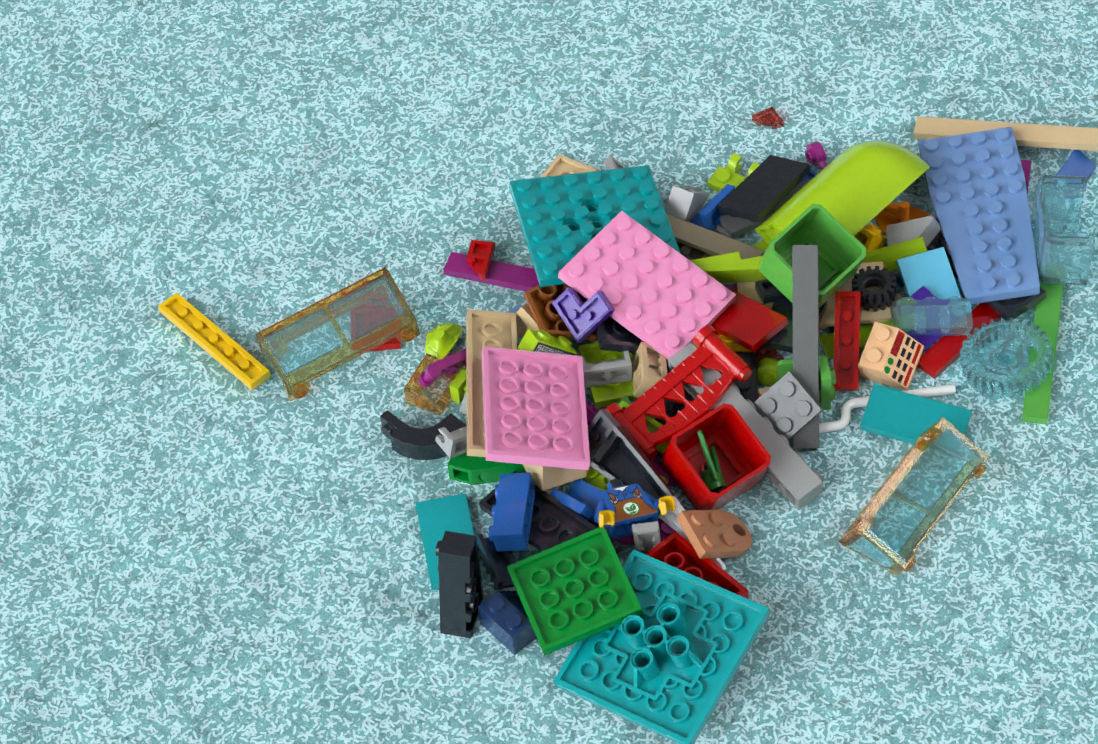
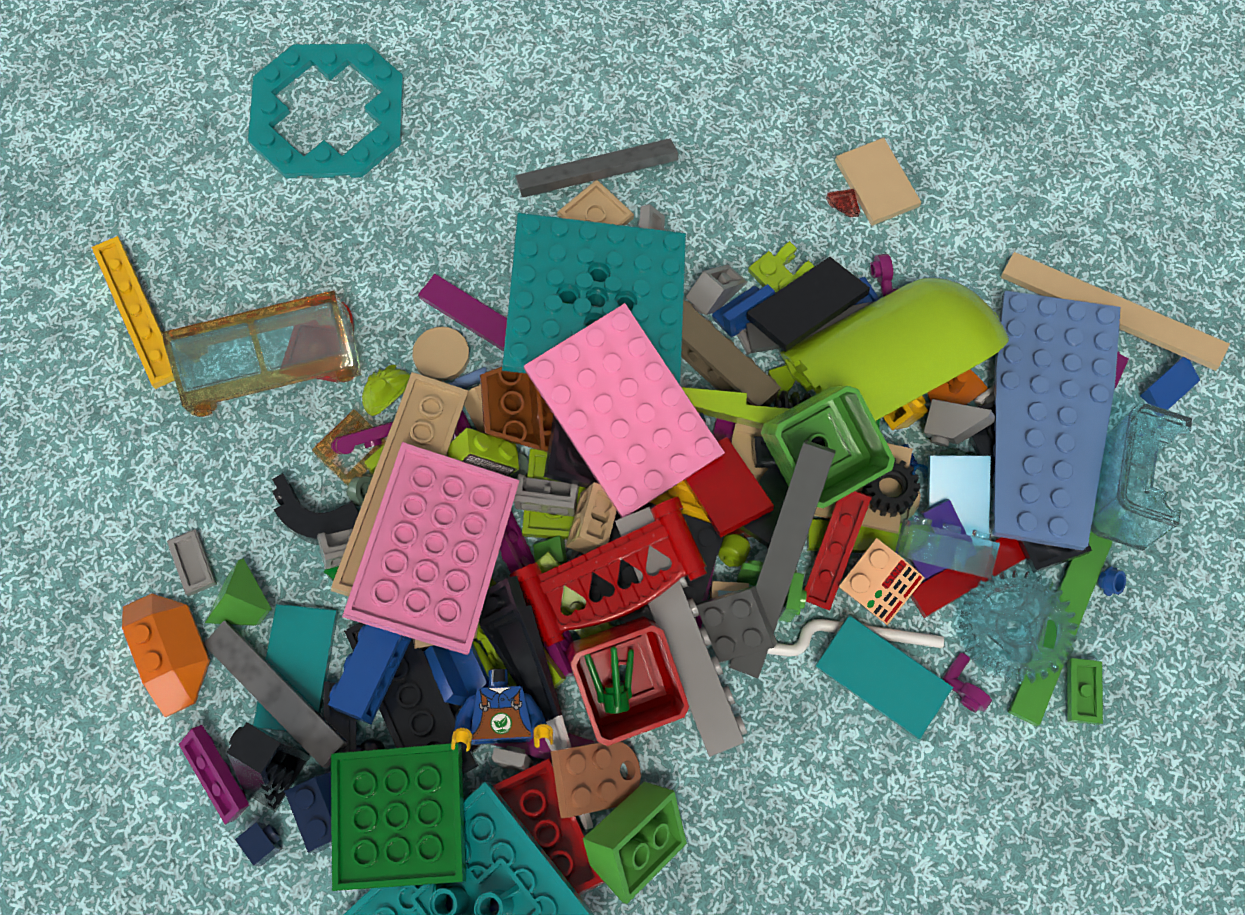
camera: 10 degrees right, 20 degrees up
(324, 199) = (323, 159): none -> teal plate
(333, 496) = (191, 562): none -> light grey tile
(341, 555) = (166, 651): none -> orange wedge
(385, 507) = (239, 599): none -> bright green slope
(413, 621) = (213, 774): none -> magenta plate
(423, 549) = (275, 694): none -> flat silver tile
(452, 406) = (358, 488): none -> sand green tile
(469, 653) = (259, 843): none -> dark blue plate
(477, 298) = (441, 353): none -> tan tile
(480, 257) = (462, 292): red tile -> none
(555, 145) = (596, 167): none -> flat silver tile
(582, 317) = (532, 428): tile -> none
(763, 561) = (636, 840): none -> bright green slope
(790, 97) = (878, 181): none -> tan tile
(892, 253) = (928, 442): lime tile -> none
(915, 497) = (845, 795): clear light blue windscreen -> none
(989, 412) = (972, 696): none -> magenta plate
(1071, 312) = (1112, 581): none -> blue plate
(1074, 388) = (1084, 691): none -> bright green plate

